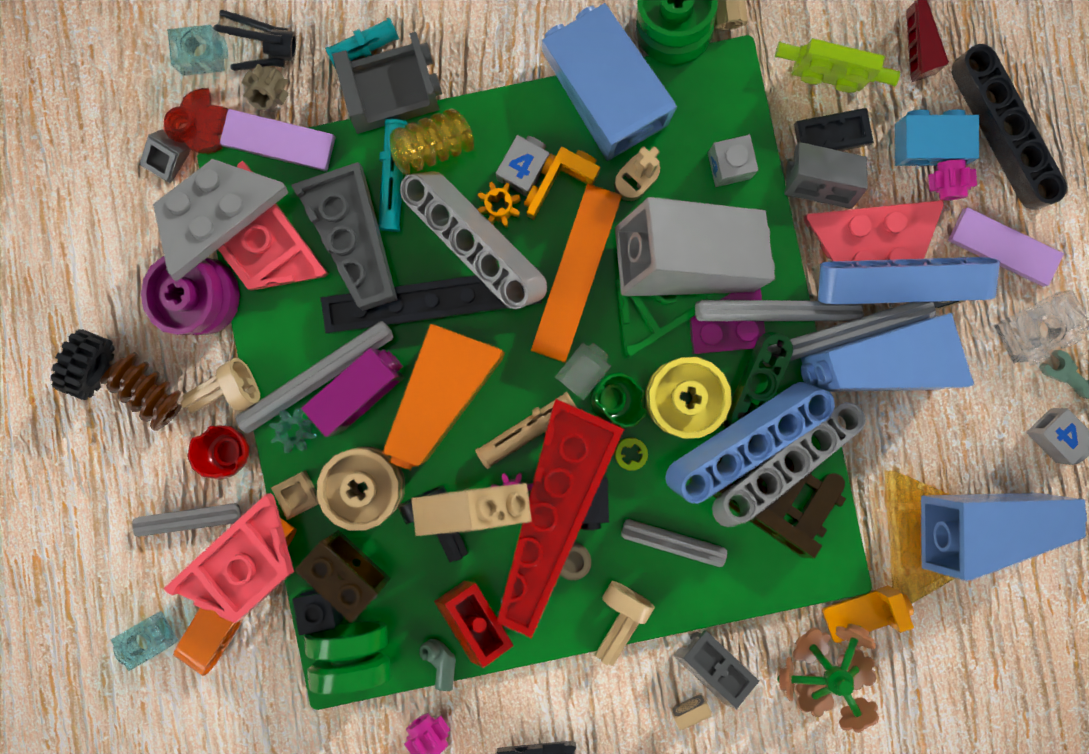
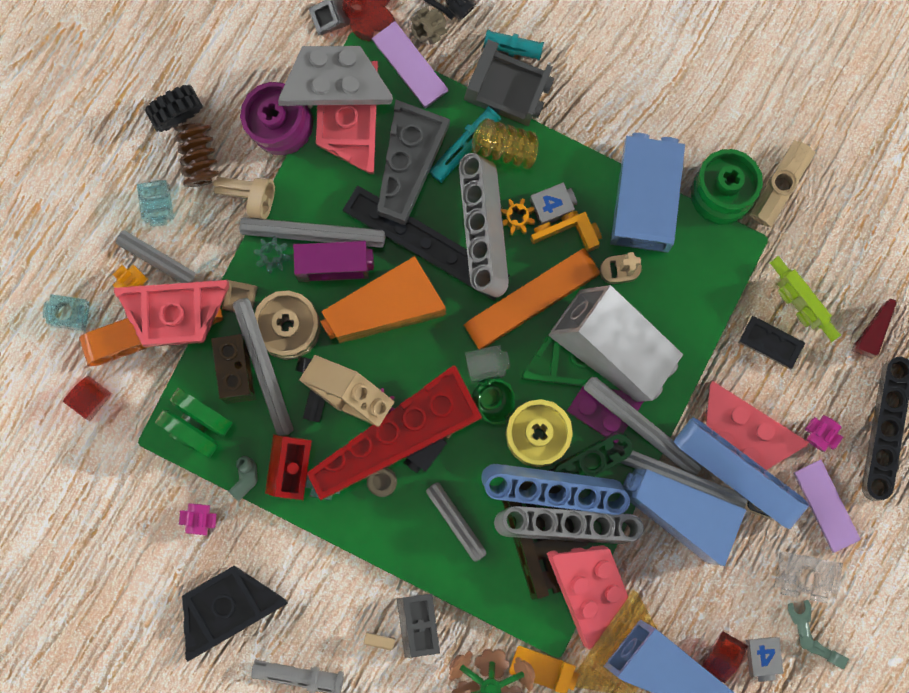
camera: 35 degrees right, 5 degrees down
(142, 468) = (155, 202): none -> clear light blue brick
(175, 560) = (129, 277): none -> light orange gear
(218, 452) = (213, 231): red hair -> none
(229, 706) = (87, 398): none -> clear red brick
(314, 613) = (196, 380): black brick -> none
(368, 548) = (263, 366): none -> light grey axle
(519, 434) = (410, 372): tan pin -> none
(632, 465) = (479, 434): lime bush -> none
(632, 610) = (395, 543): tan piece -> none
(732, 160) = (688, 307): light grey brick -> none
(826, 176) = (743, 365): dark grey hinge -> none
(851, 505) = (589, 588): none -> coral wing
(932, 139) = (834, 398): dark azure brick -> none
(1024, 466) = (724, 656): none -> clear red brick

